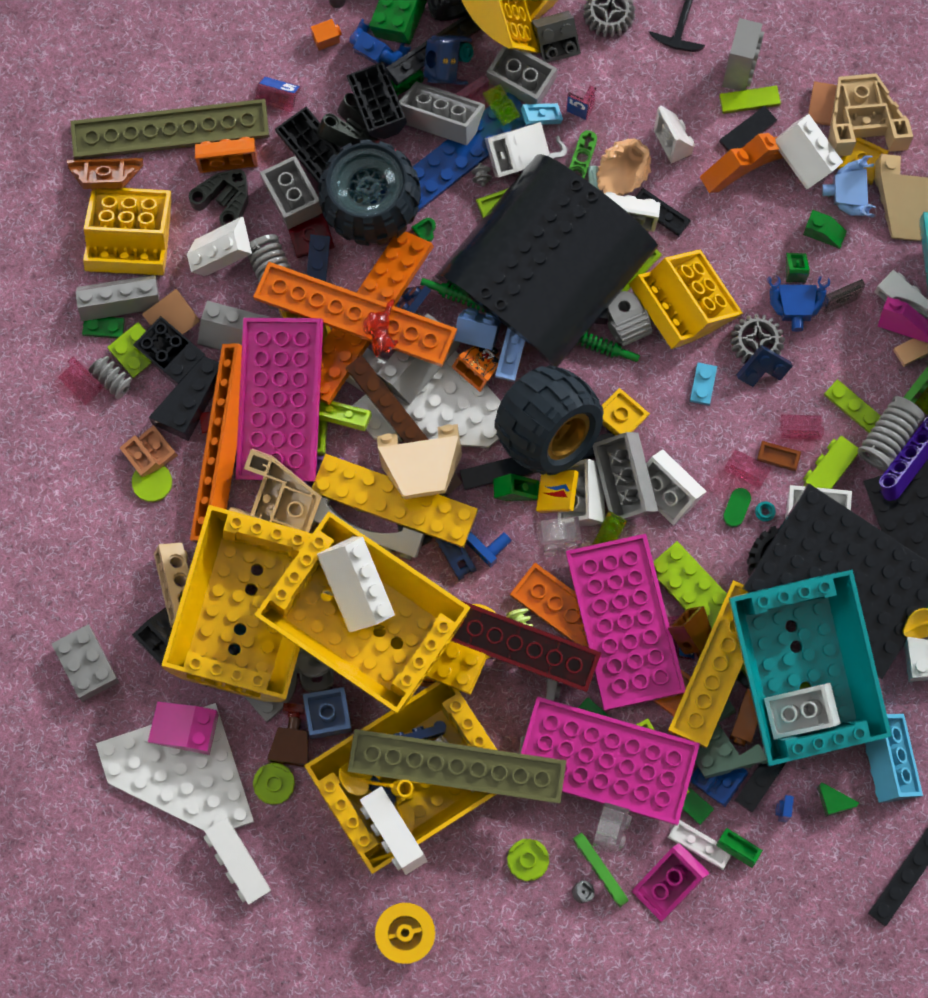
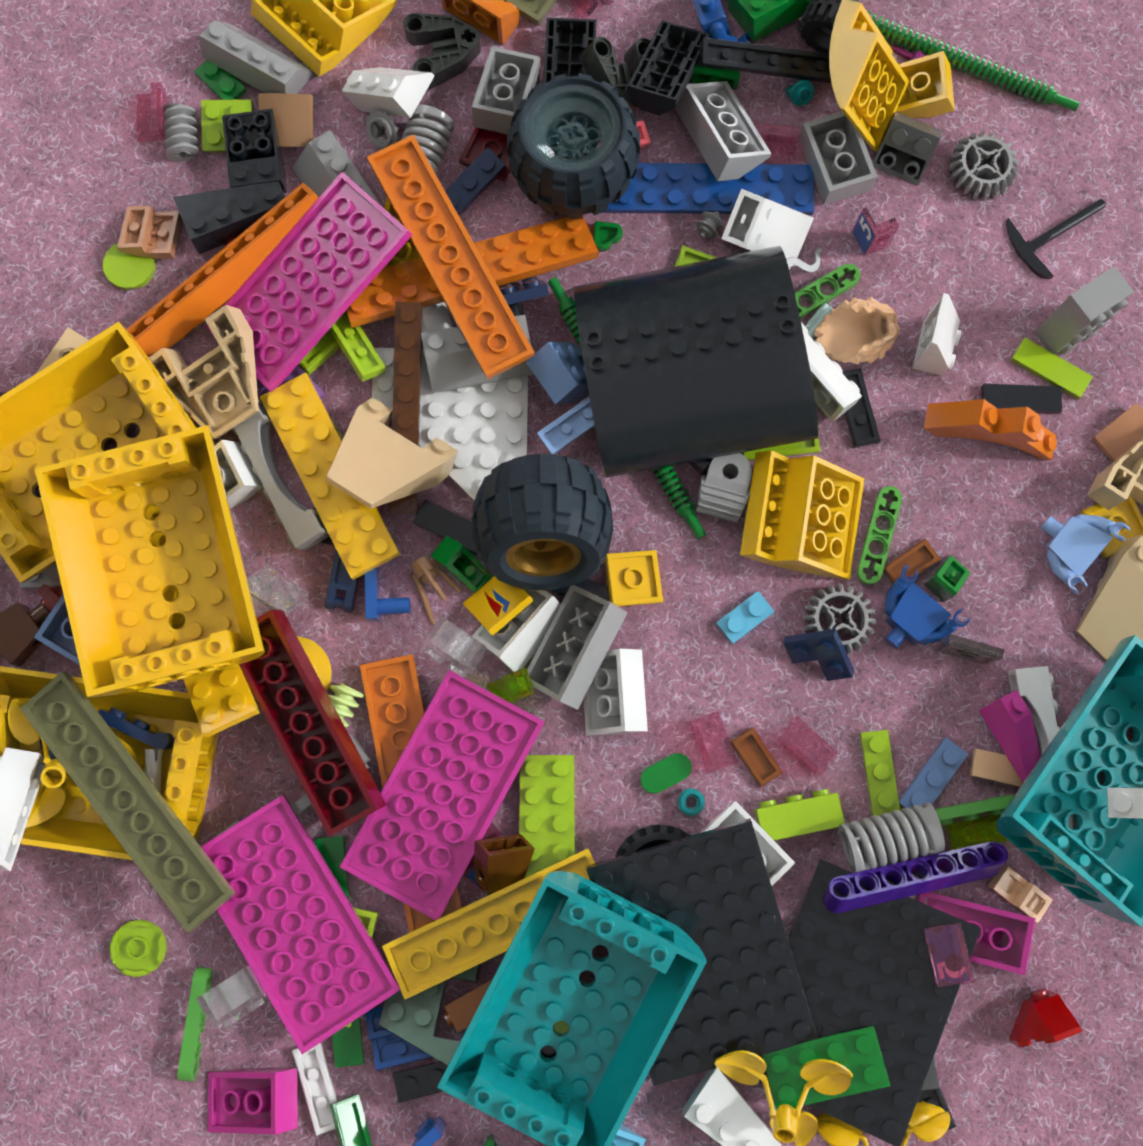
camera: 40 degrees right, 5 degrees up
(243, 280) = (374, 128): none -> light grey gear
(355, 584) = (170, 524): white slope -> none
(377, 326) = (454, 284): clear red animal -> none
(443, 59) = (771, 77): dark blue piece -> none
(477, 365) = (531, 409): orange torso -> none
(498, 510) = (426, 571): none -> medium nougat plant
(501, 105) = (790, 170): clear neon green slope -> none
(542, 113) = (824, 211): medium azure plate -> none
(583, 891) = (159, 1030): dark grey tile -> none
(736, 275) = (881, 536): none -> bright green beam
(770, 267) = (918, 558): none -> dark orange tile
(802, 711) = (532, 1055): white slope -> none
(807, 151) = (1065, 469): white slope -> none
(825, 229) = (1012, 564): green slope -> none
(884, 381) = (934, 774): none -> medium blue plate

